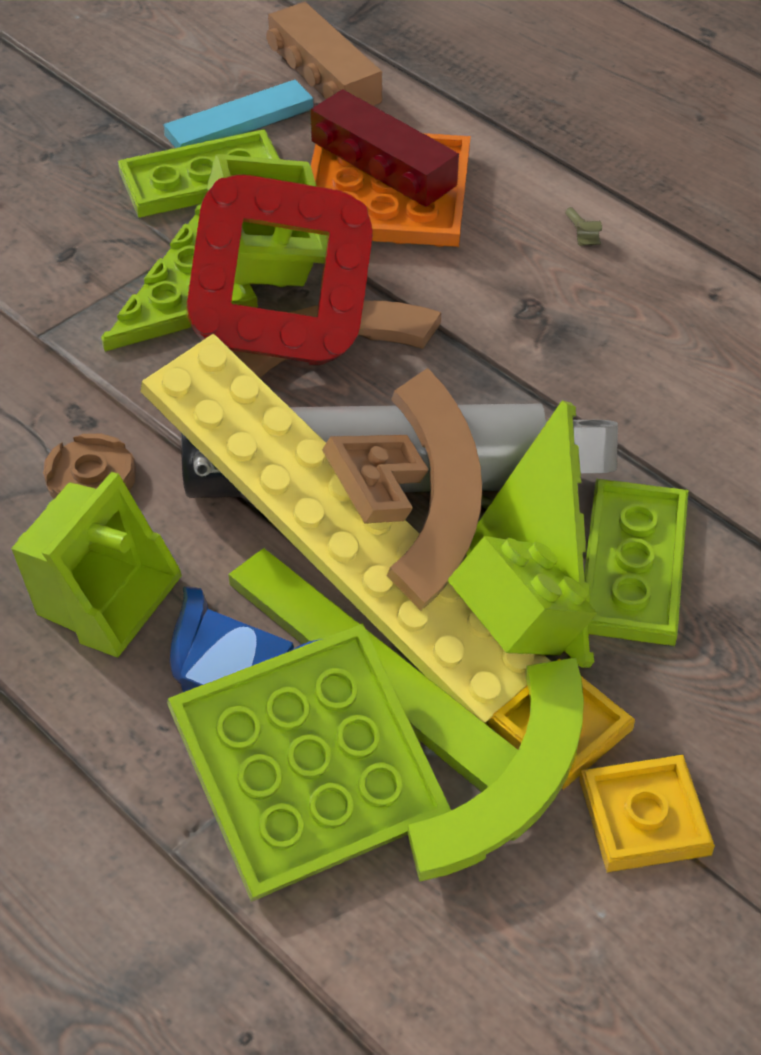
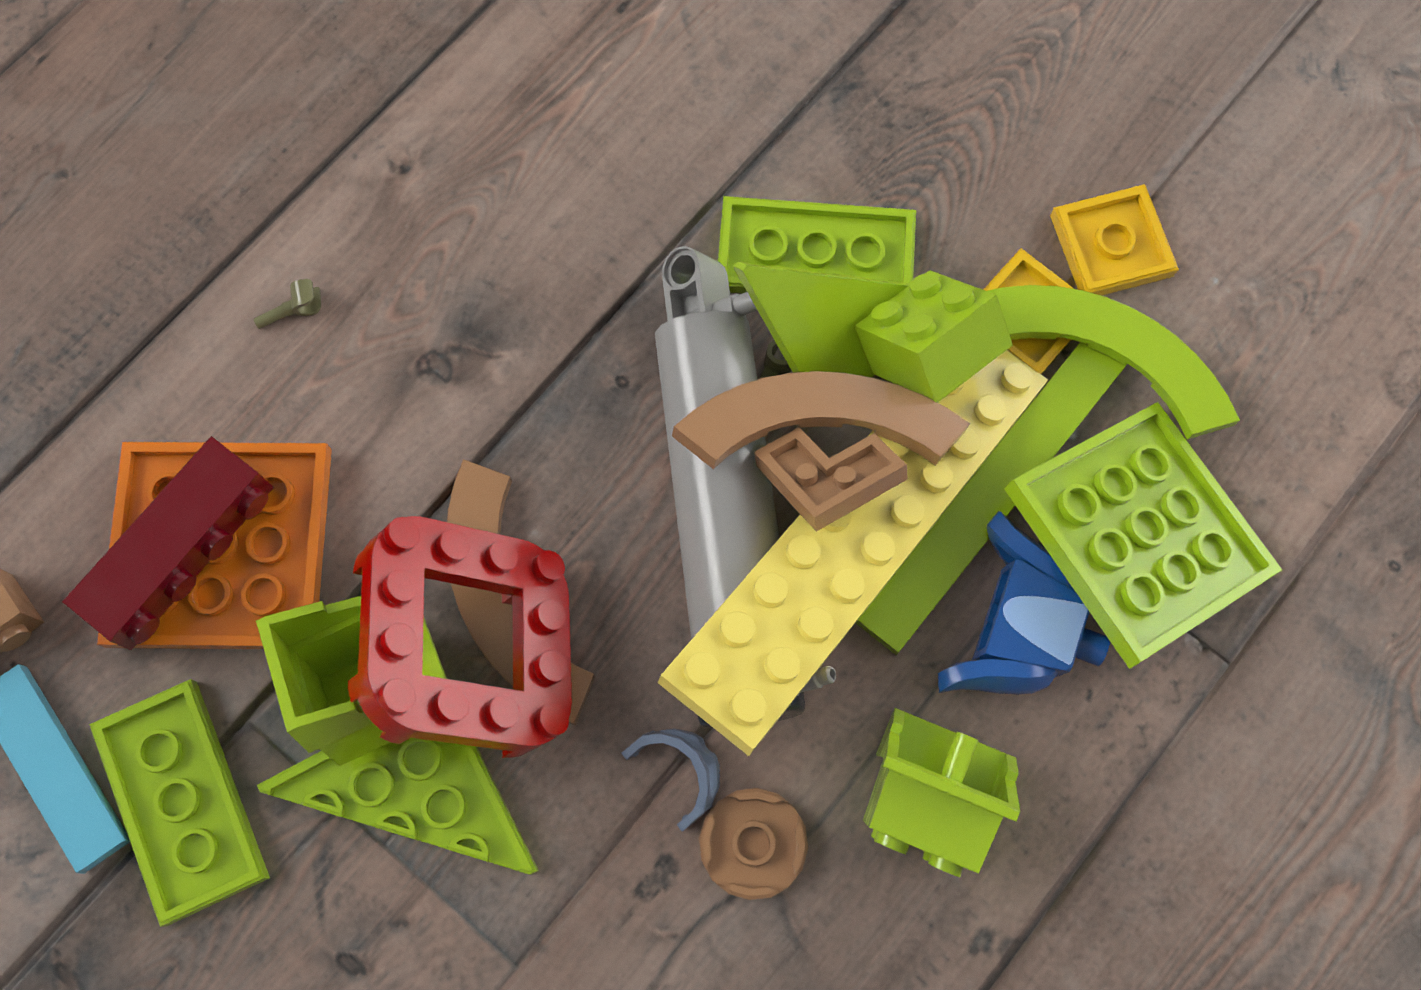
camera: 95 degrees left, 25 degrees up
(130, 438) = (702, 758): none -> sand blue helmet

